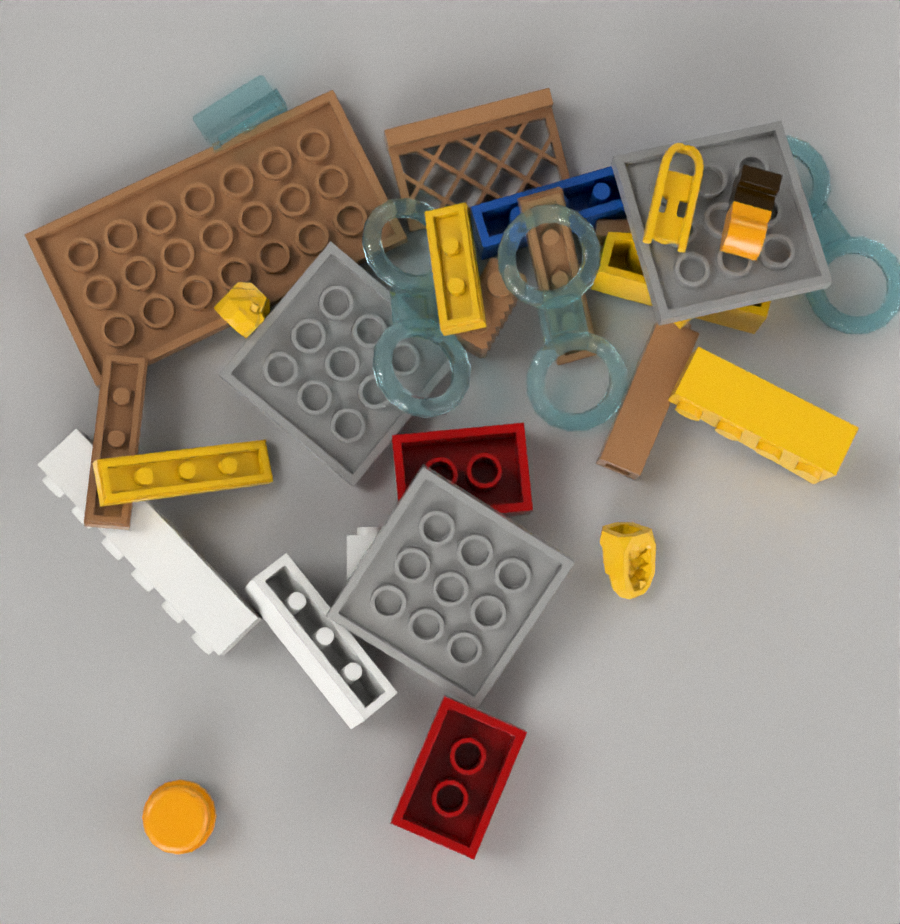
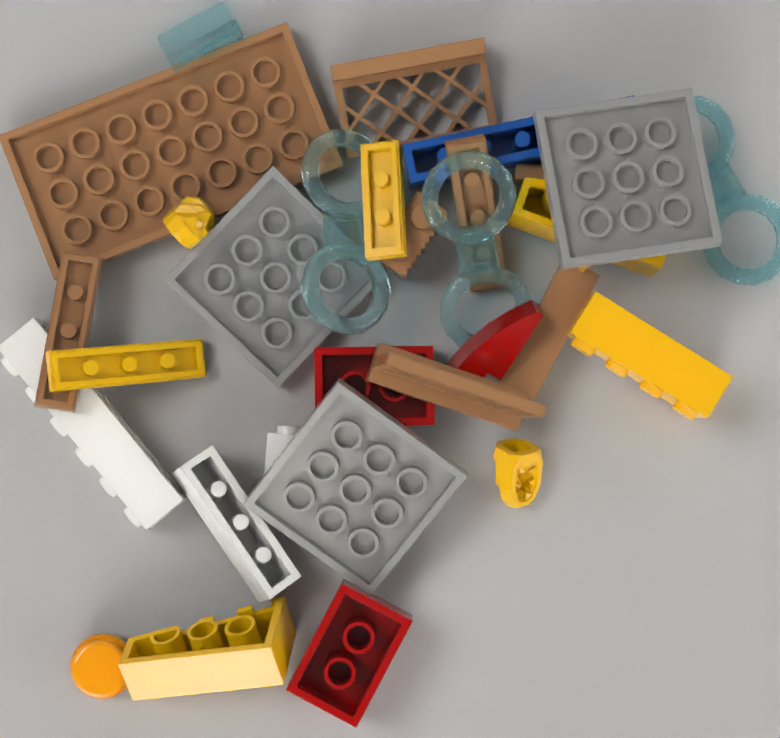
camera: 10 degrees right, 5 degrees up
(302, 792) = (211, 654): none -> yellow wedge
(550, 465) = (451, 388): none -> medium nougat fence
(585, 426) = (498, 342): none -> red slope
(675, 188) = (588, 146): yellow piece -> none
(749, 211) = (652, 174): leg -> none

